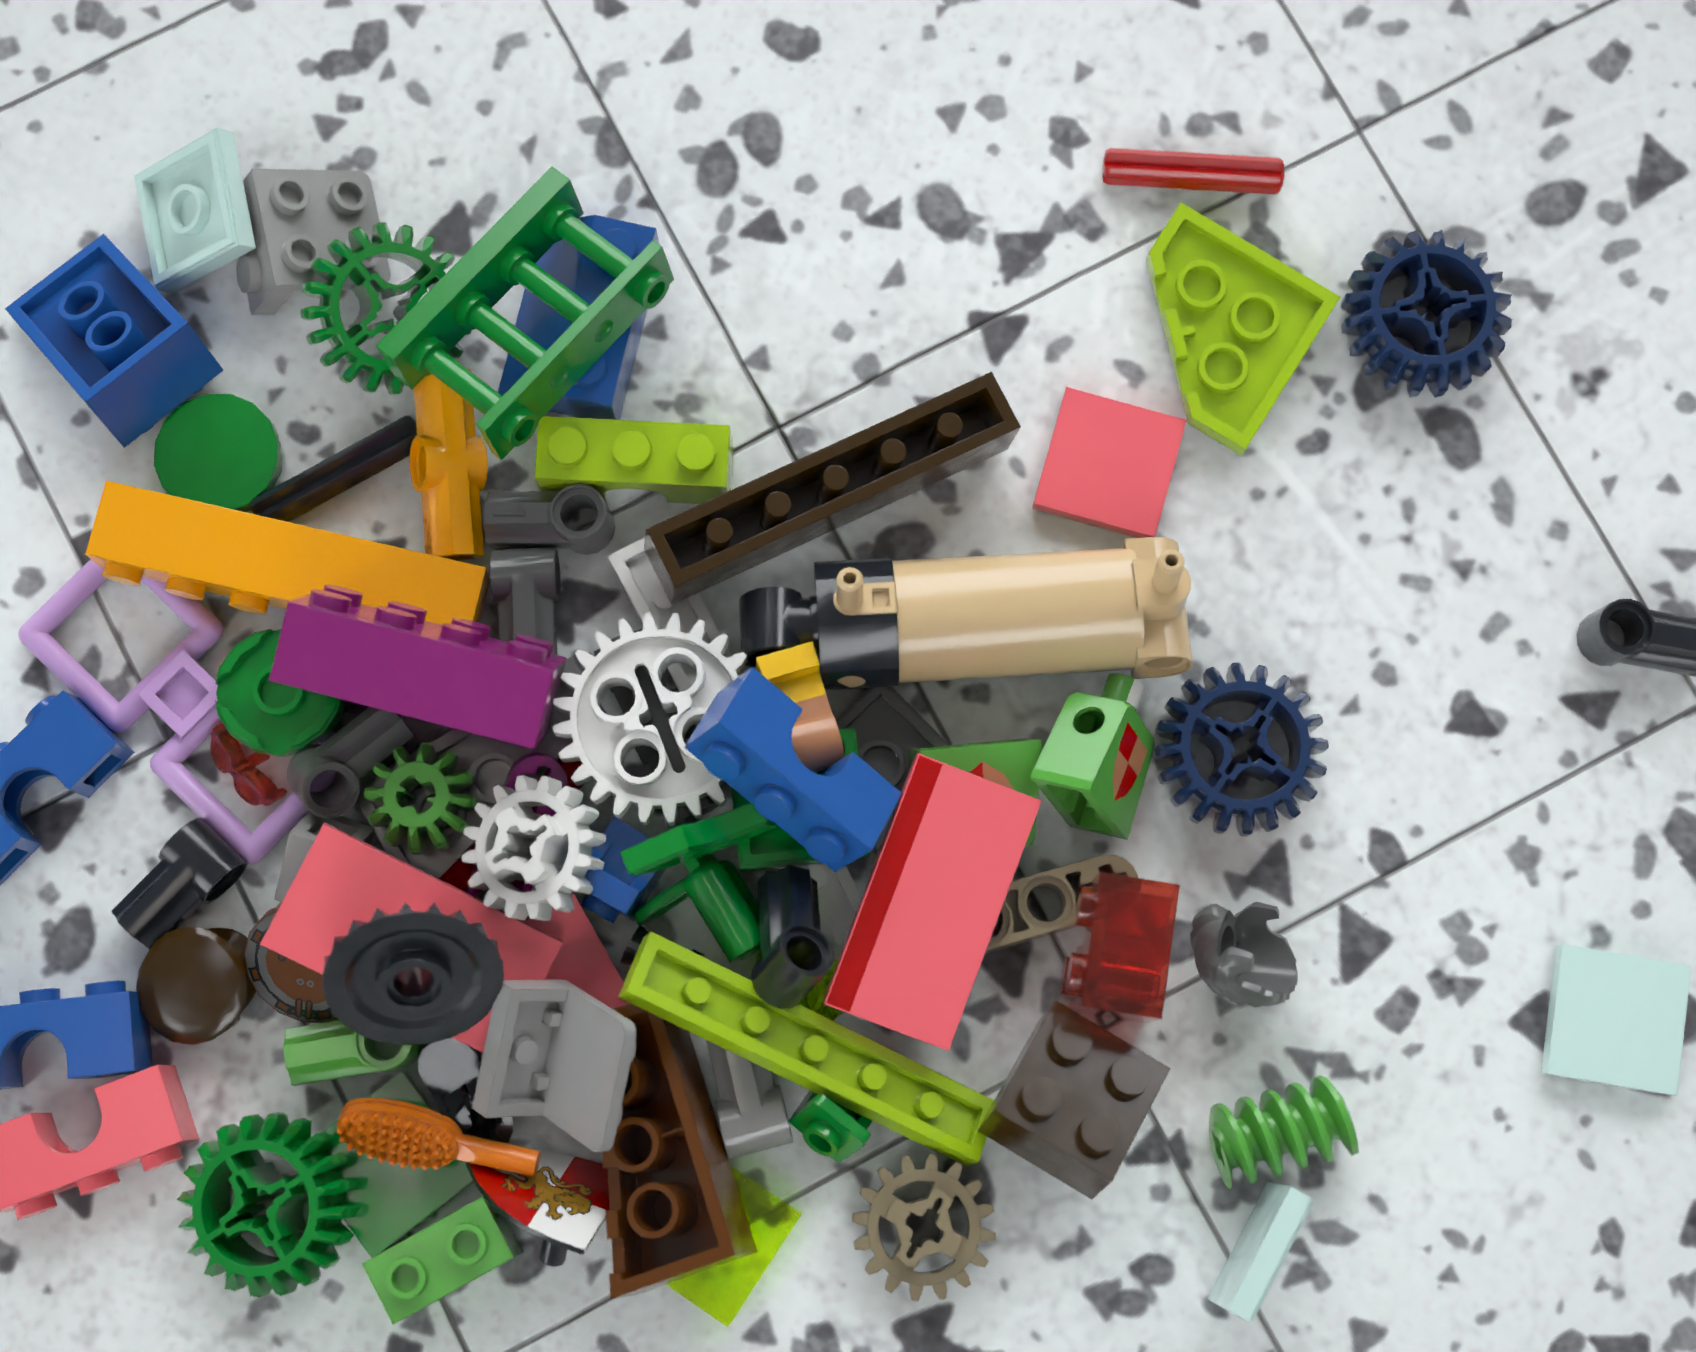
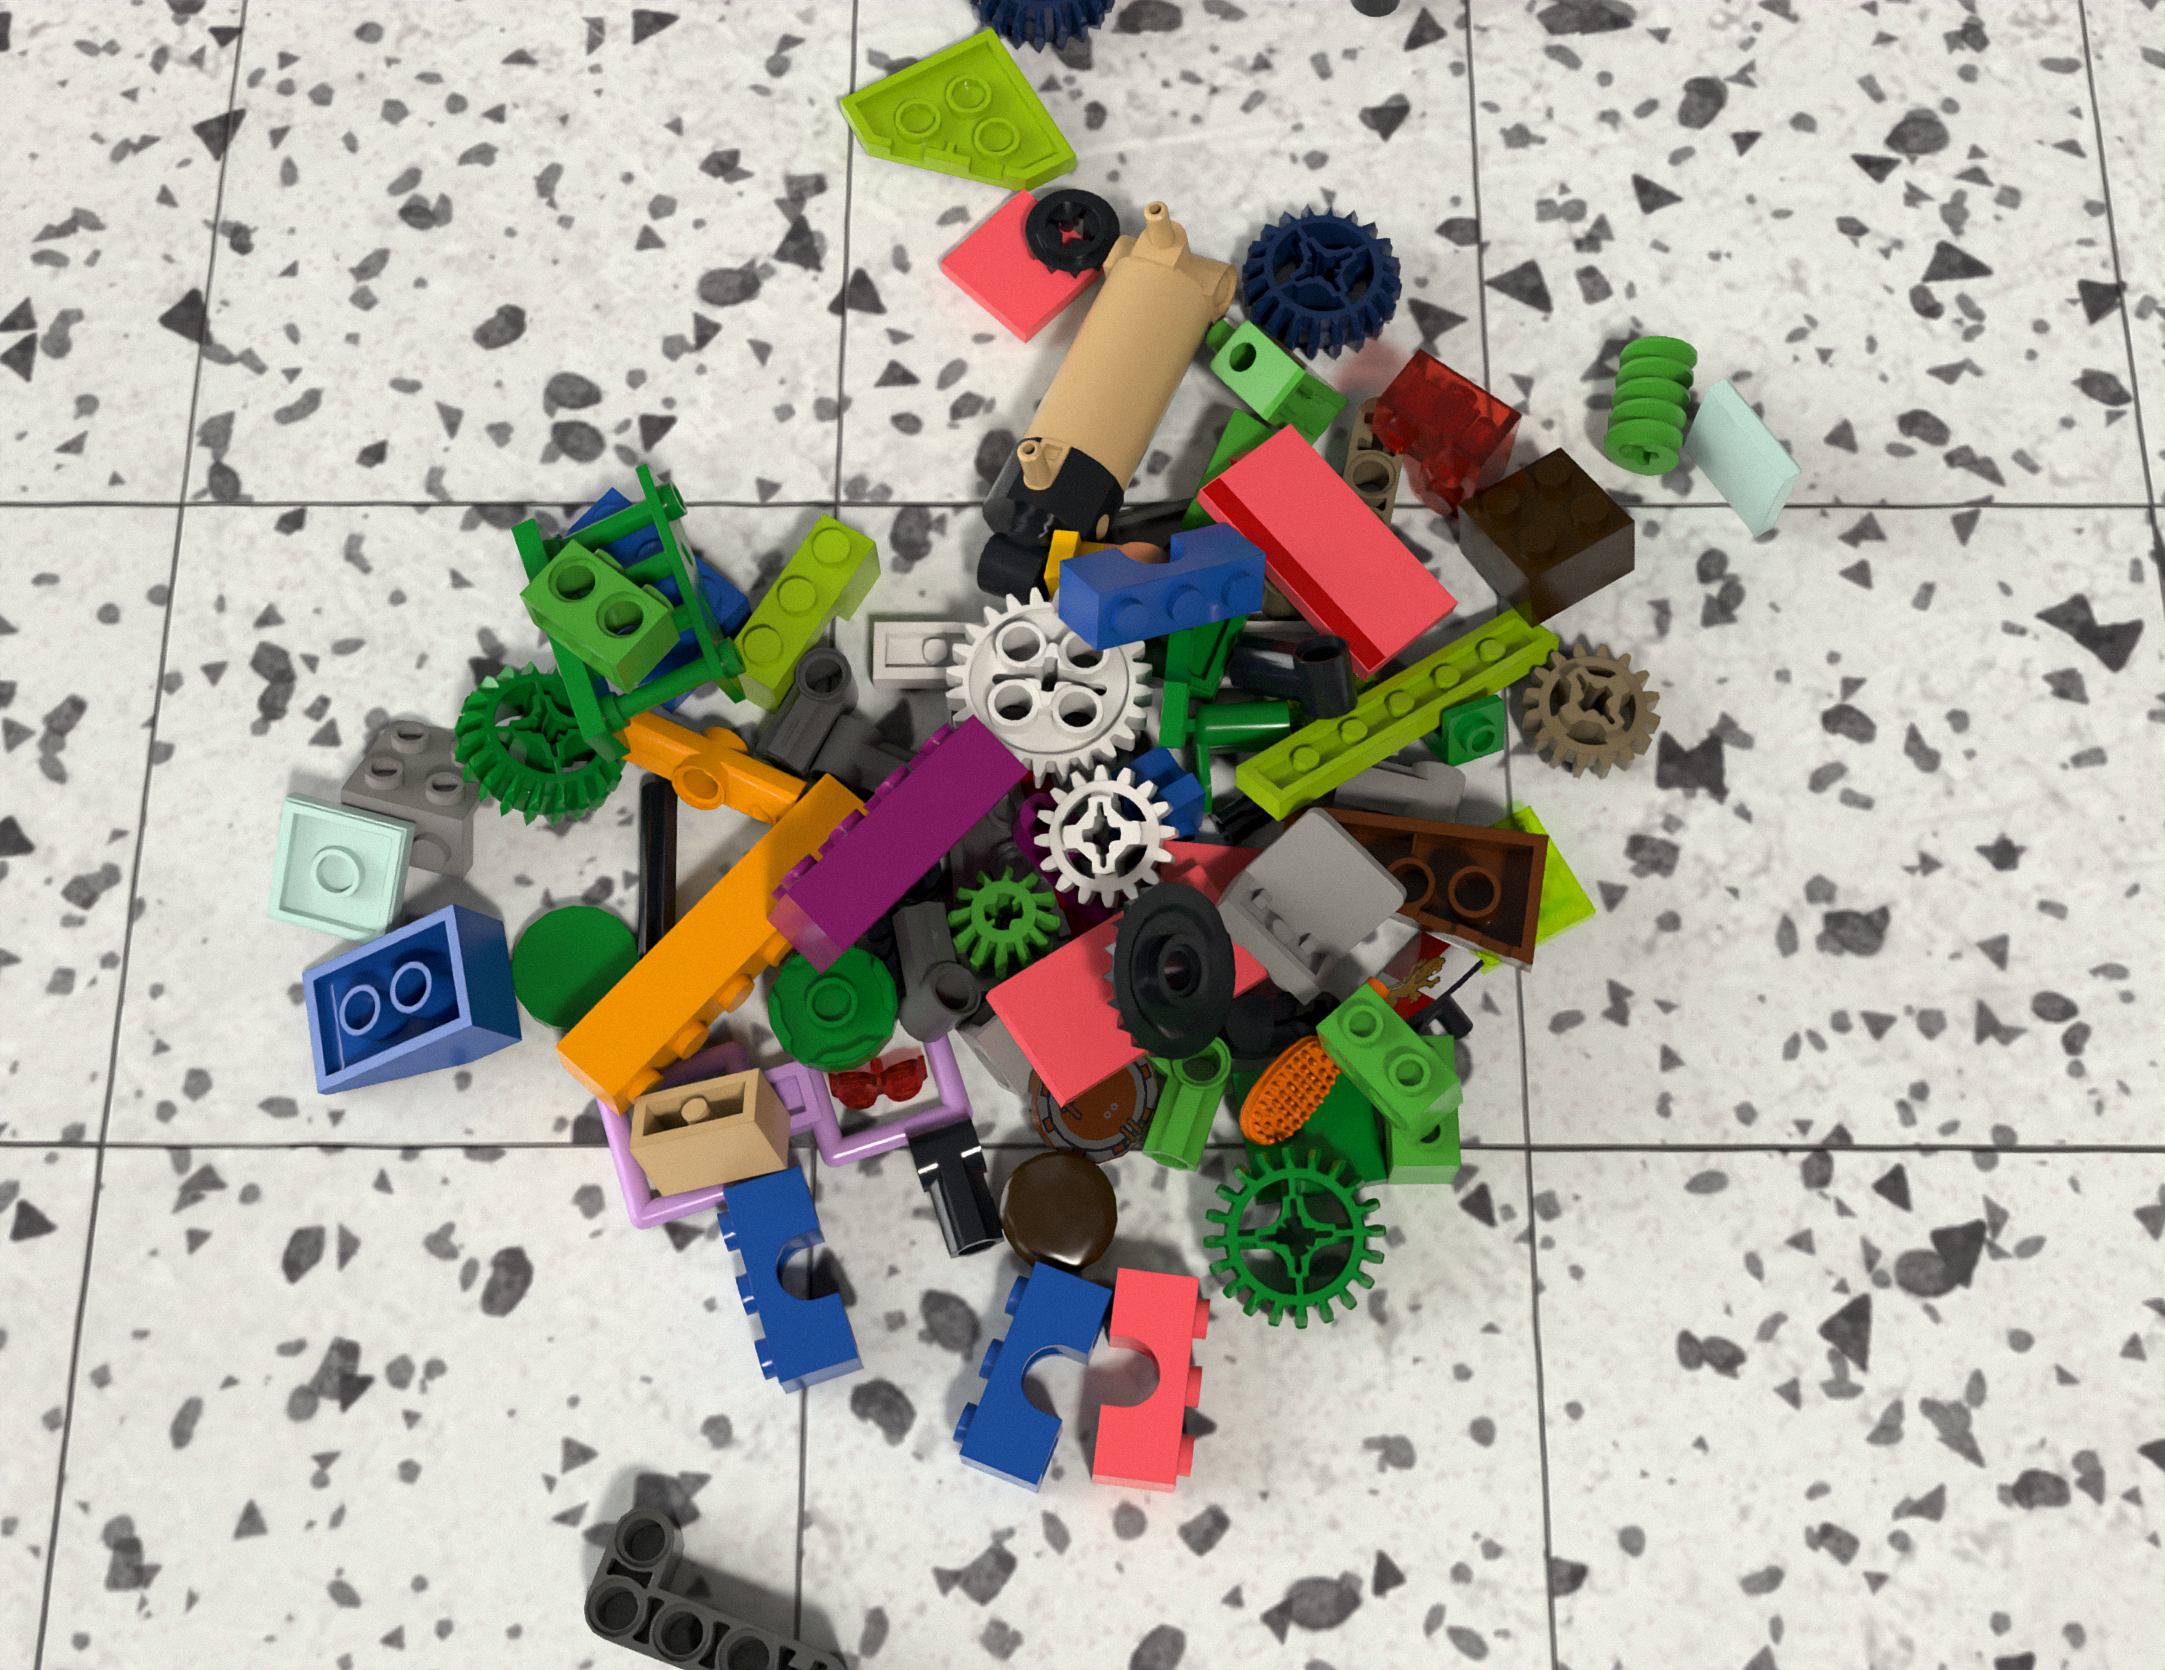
camera: 60 degrees left, 10 degrees down
(103, 652) = (710, 1132): none -> tan brick
(432, 1216) = (1390, 1064): none -> bright green brick
(472, 293) = (592, 623): none -> bright green brick
(830, 488) = (925, 467): dark brown brick -> none
(1176, 470) = (1063, 212): none -> black gear
(1193, 171) = (815, 84): red axle -> none
(1243, 956) = (1497, 362): dark grey hair -> none
(1616, 1019) = (1683, 135): light aqua tile -> none

